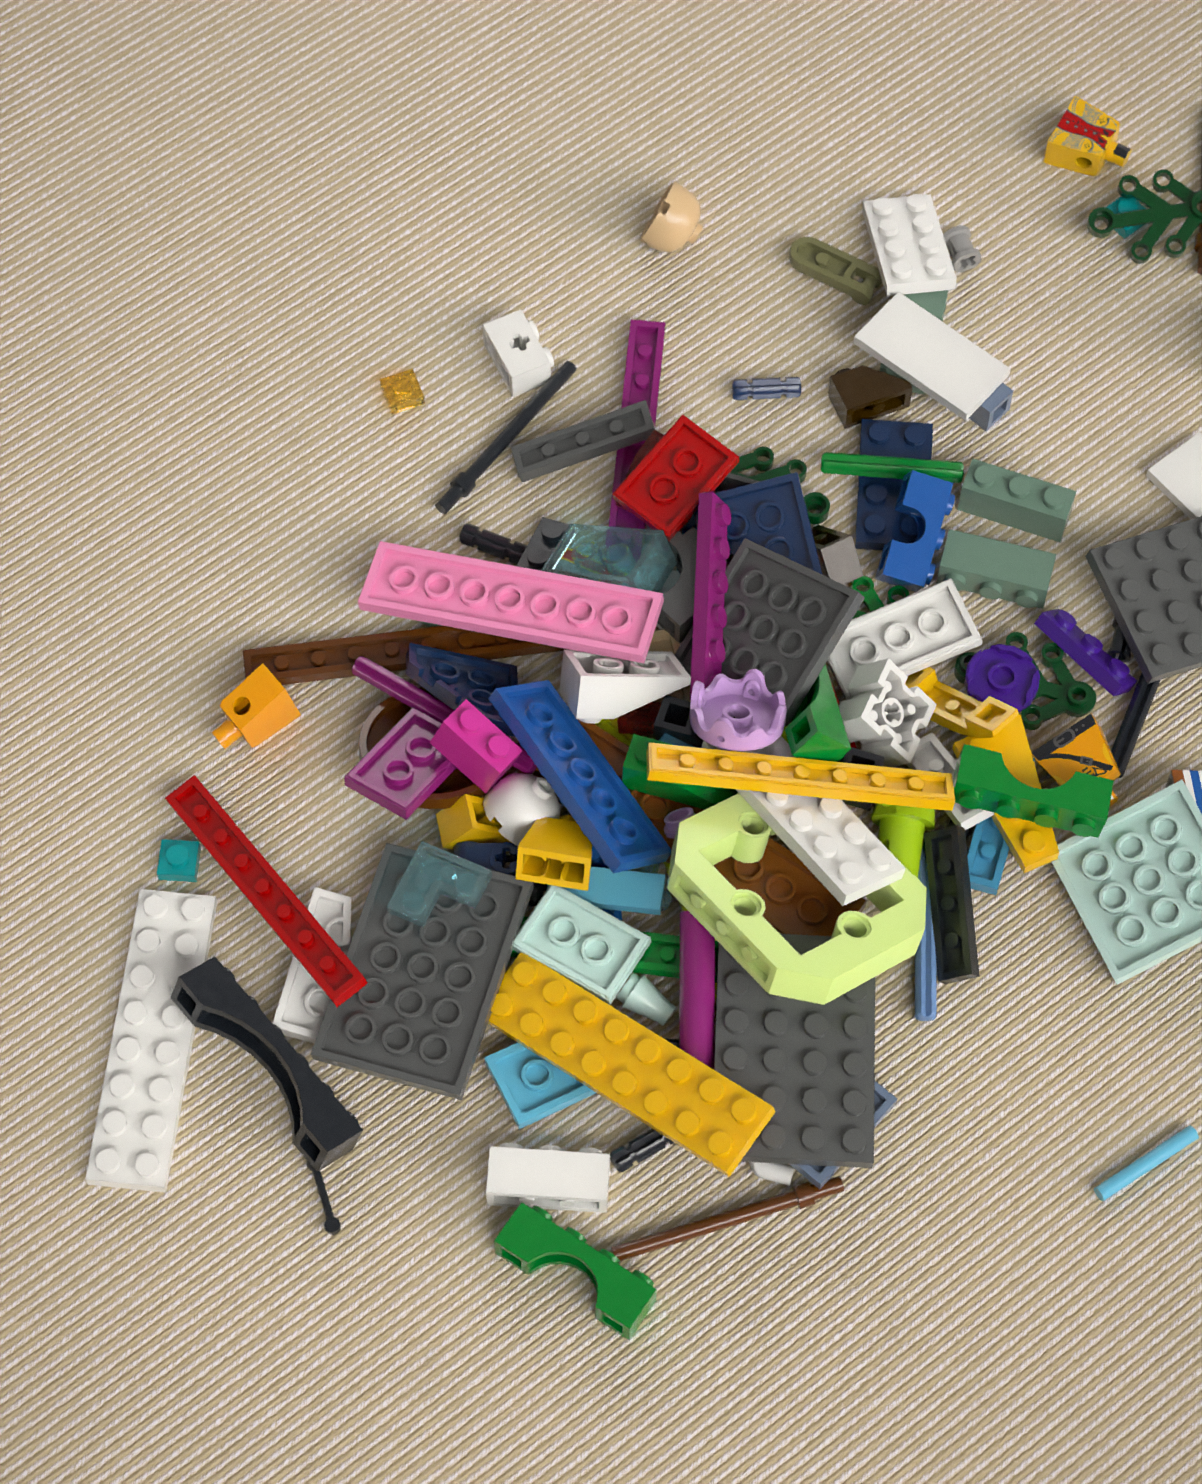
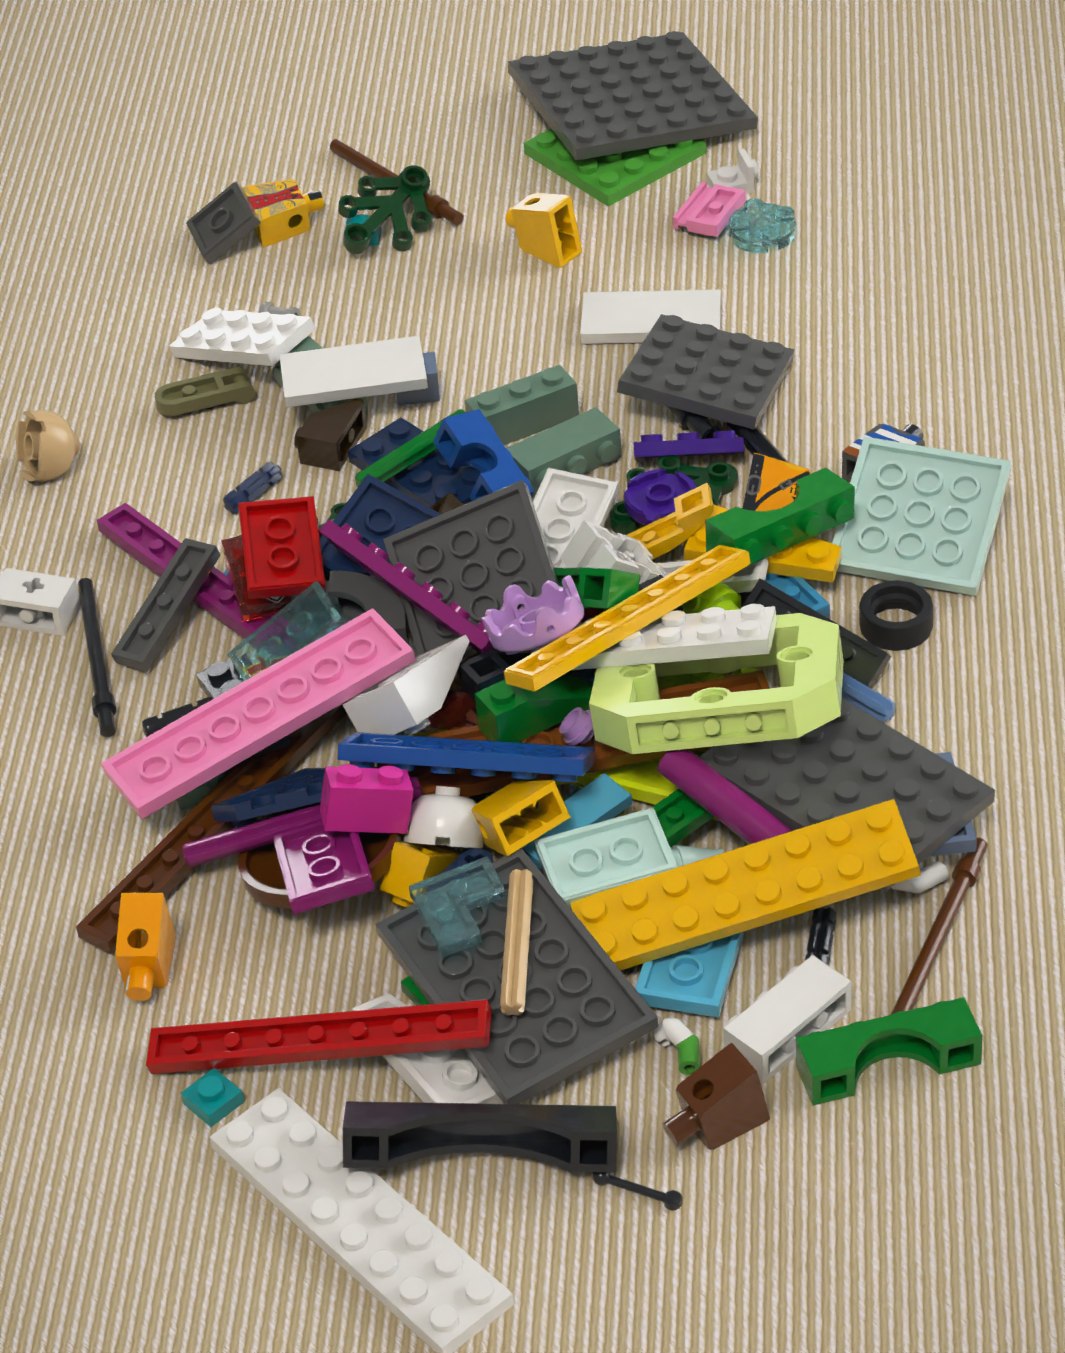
camera: 45 degrees left, 20 degrees down
(425, 1194) = (719, 1101): none -> reddish brown torso
(441, 950) = (516, 943): none -> tan axle
(476, 1123) = (686, 1042): none -> arm
(1029, 116) = (223, 222): none -> dark grey tile
(1046, 920) = (890, 634): none -> black tyre

